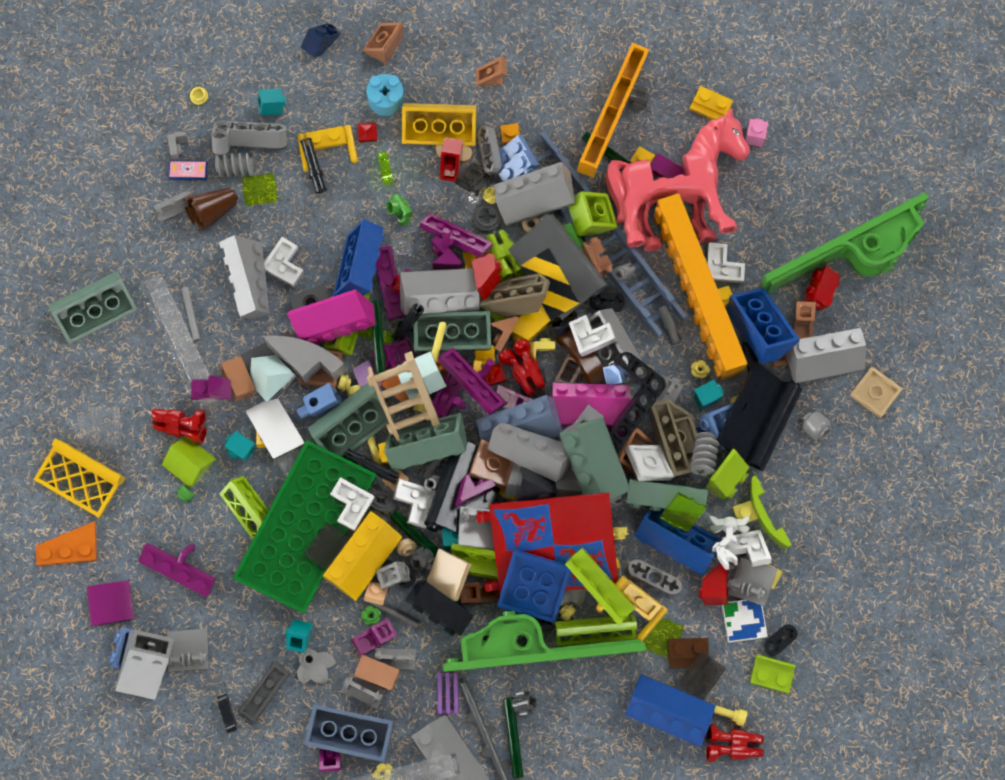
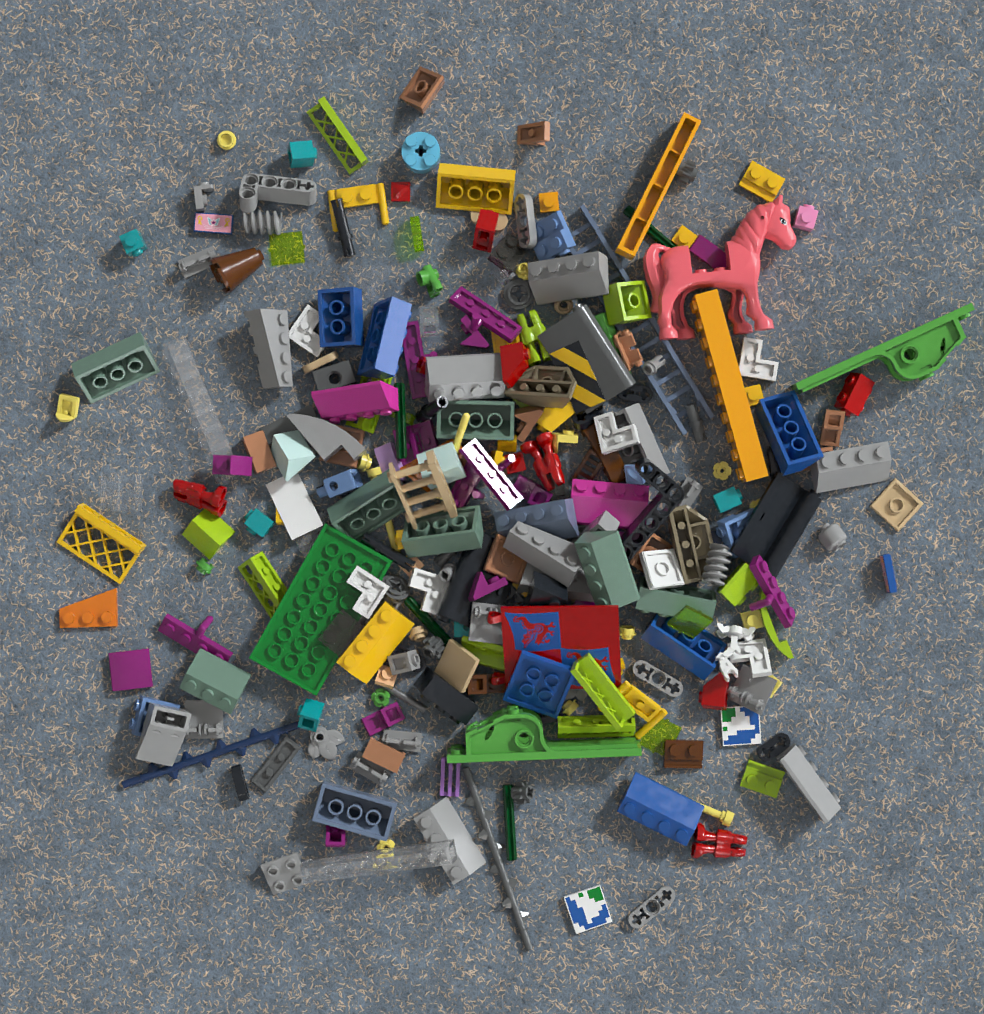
camera: 10 degrees right, 15 degrees up
(45, 348) = (67, 407): none -> light yellow plate
(109, 190) = (133, 243): none -> teal brick
(191, 314) = (213, 379): light grey bar -> none
(191, 690) = (206, 758): none -> dark blue plant
(198, 607) = (215, 681): none -> sand green slope
(296, 288) = (319, 362): none -> tan tile
(310, 81) = (346, 136): none -> lime fence
(314, 246) = (340, 317): none -> blue slope
(319, 39) = (355, 83): dark blue slope -> none
(702, 675) = (694, 777): clear smoke plate -> none
(763, 481) = (772, 592): none -> magenta plate
(821, 673) = (808, 782): none -> light grey slope
(876, 457) = (888, 573): none -> blue tile

